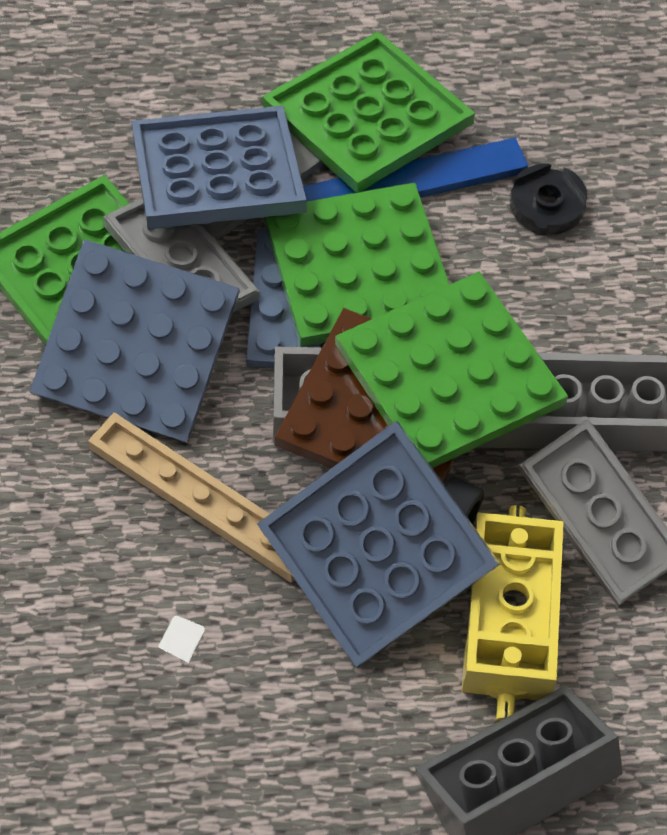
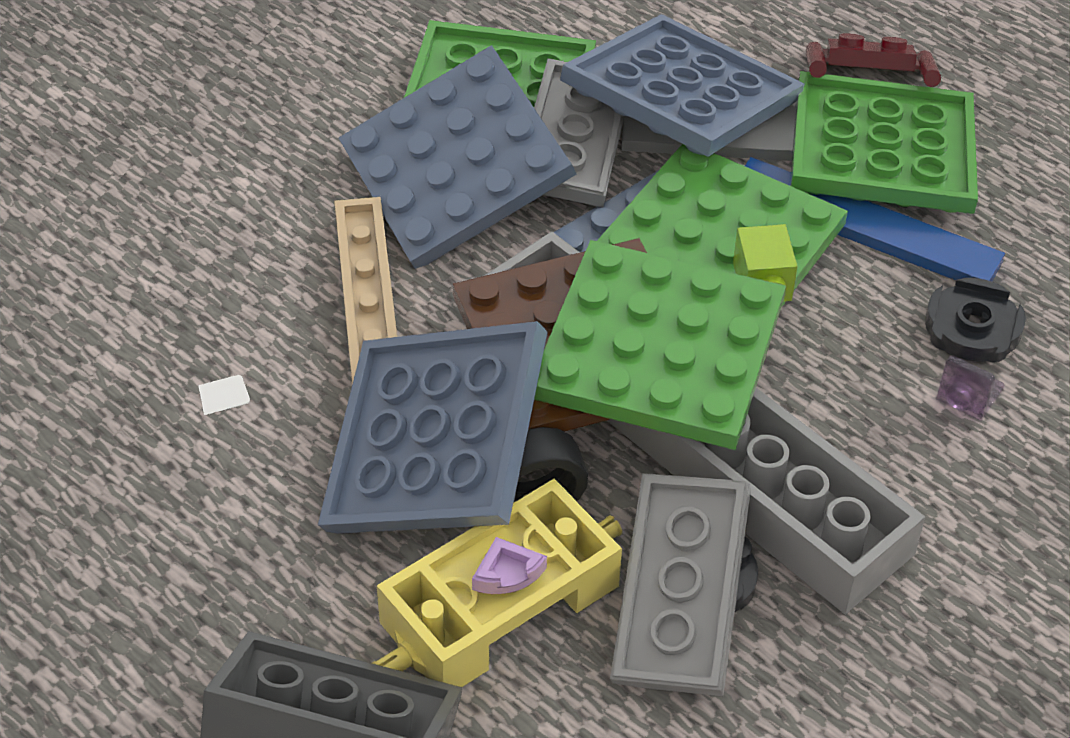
camera: 50 degrees right, 10 degrees down
(286, 48) = (889, 54): none -> dark red plate
(431, 262) = (766, 255): none -> lime brick
(525, 591) = (508, 568): none -> lavender tile
(598, 248) = (968, 388): none -> clear purple bracket

